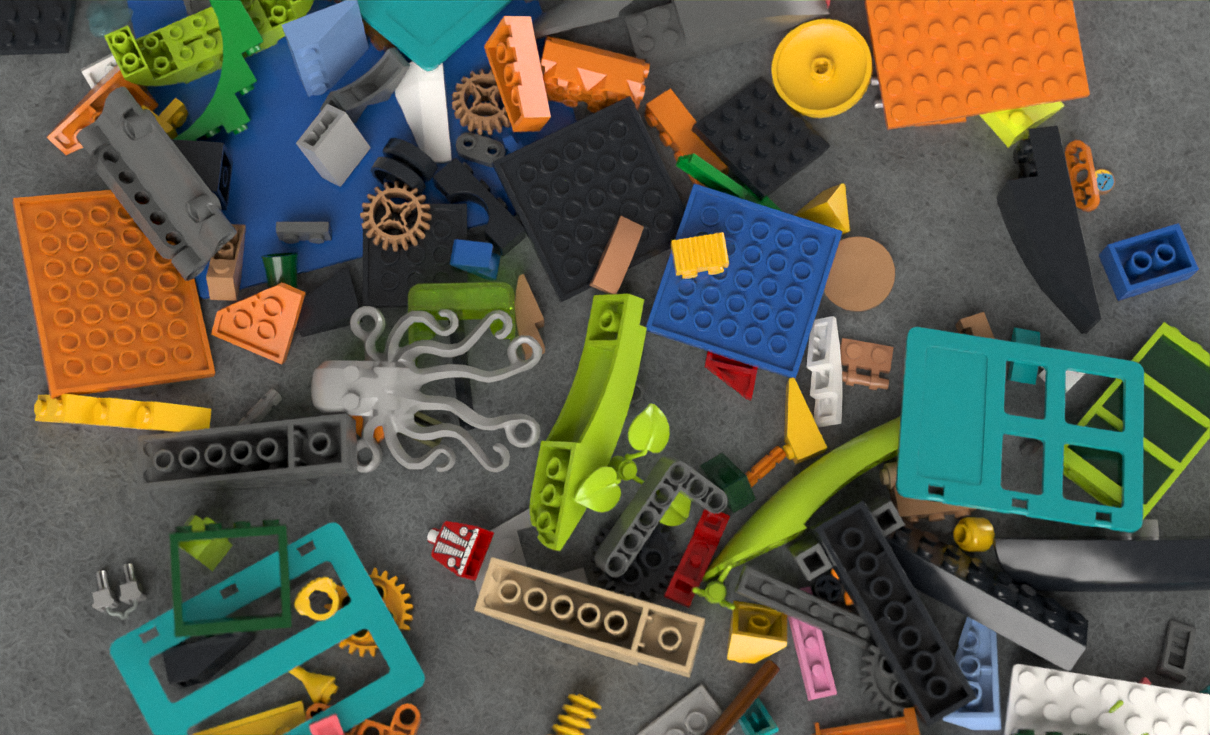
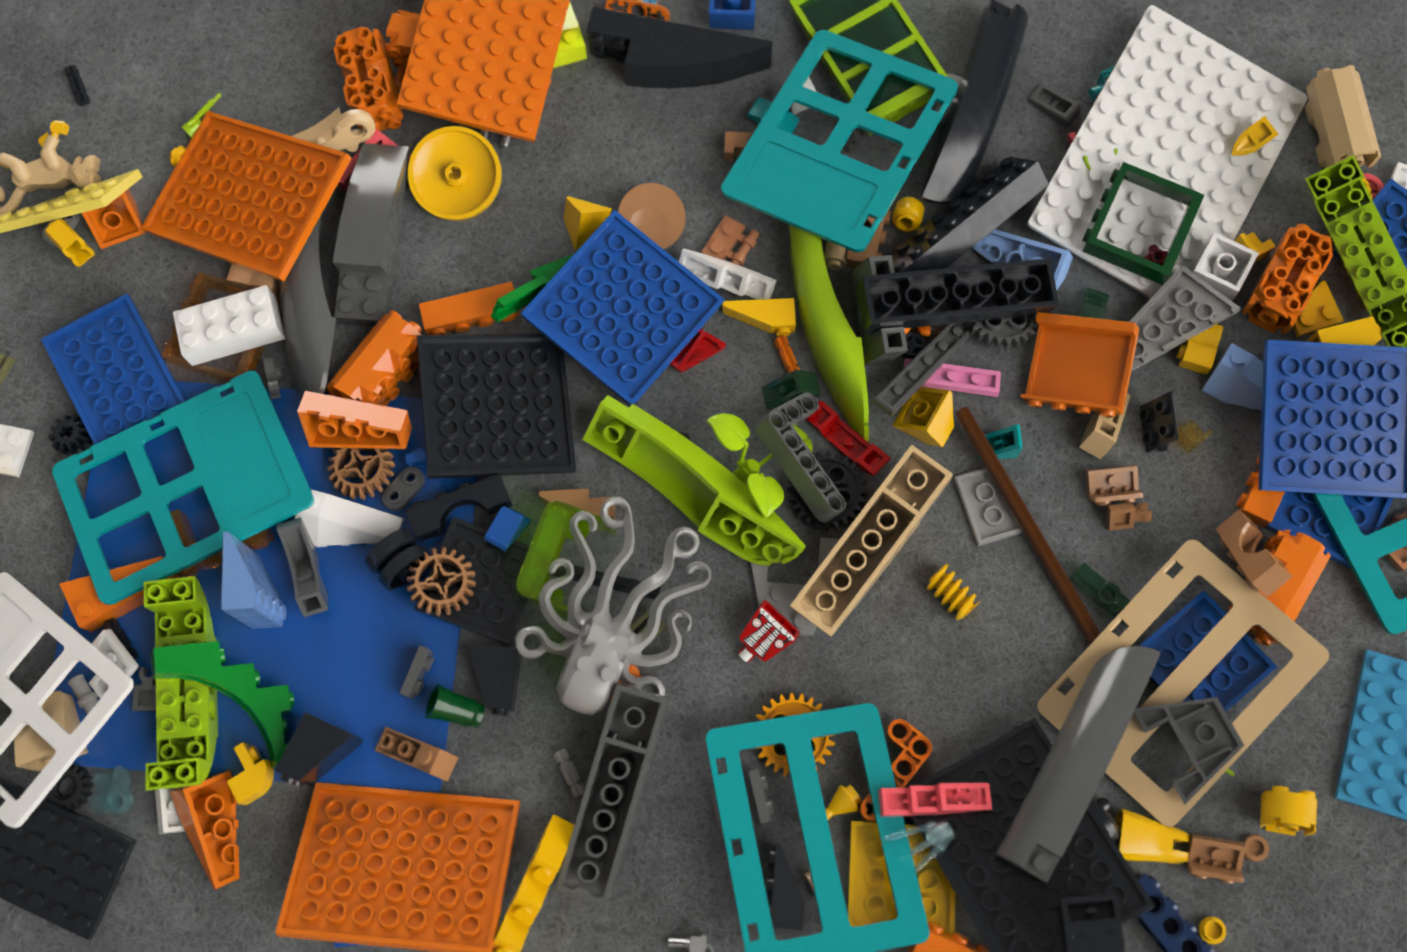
camera: 60 degrees left, 0 degrees up
(160, 179) = (316, 783): dark grey panel -> none
(205, 551) = (672, 864): lime wedge -> none
(230, 624) = (771, 851): dark green window -> none
(262, 321) = (488, 740): orange plate -> none
(302, 601) = (772, 785): yellow piece -> none
(333, 145) = (347, 614): light grey brick -> none
(617, 256) = (557, 405): nougat slope -> none
(700, 255) = (588, 332): yellow brick -> none
(716, 591) = (882, 435): lime plant -> none
(760, 138) = (496, 248): black plate -> none

